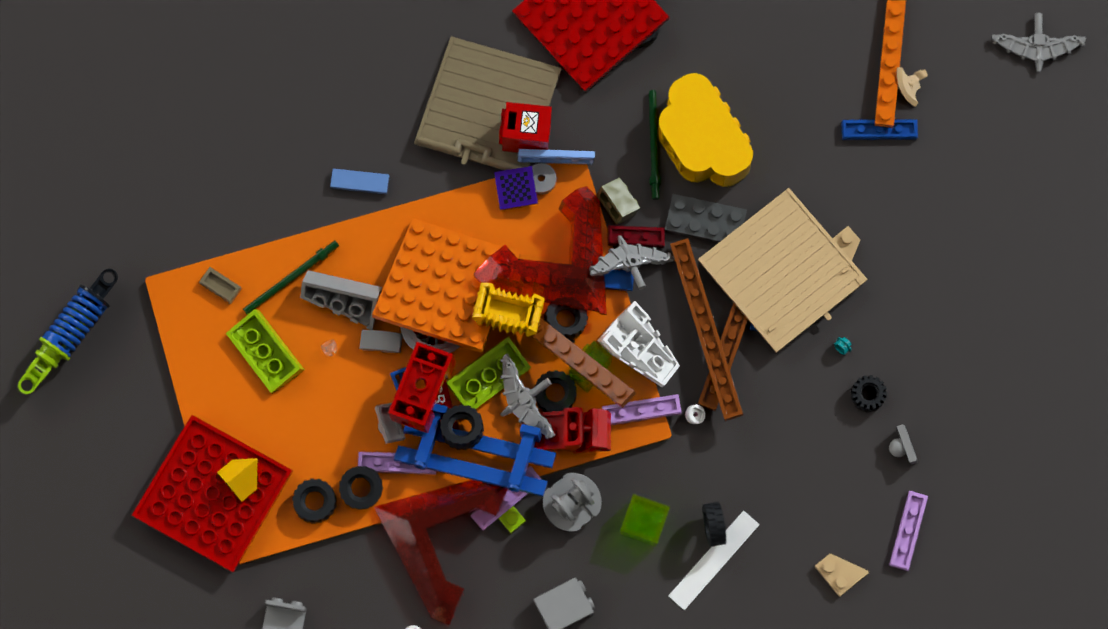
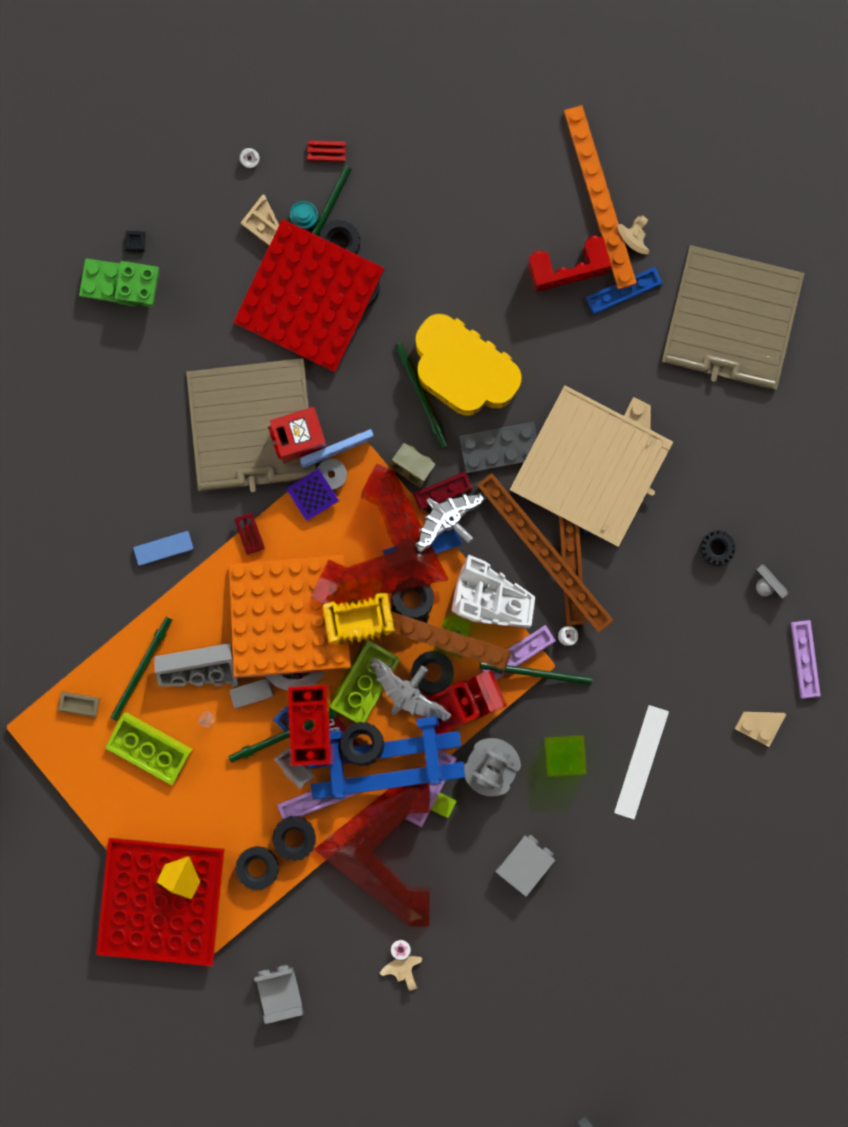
camera: 20 degrees left, 10 degrees up
(354, 391) = (248, 750): none -> dark green bar
(442, 215) = (254, 549): none -> dark red tile
(618, 413) = (538, 673): none -> dark green bar
(714, 524) = (629, 732): black tyre -> none
(843, 345) = (675, 512): teal plate -> none
(860, 96) = (596, 264): none -> red plate
(970, 194) = (733, 317): none -> dark tan door
(1038, 46) = (738, 146): light grey bar -> none

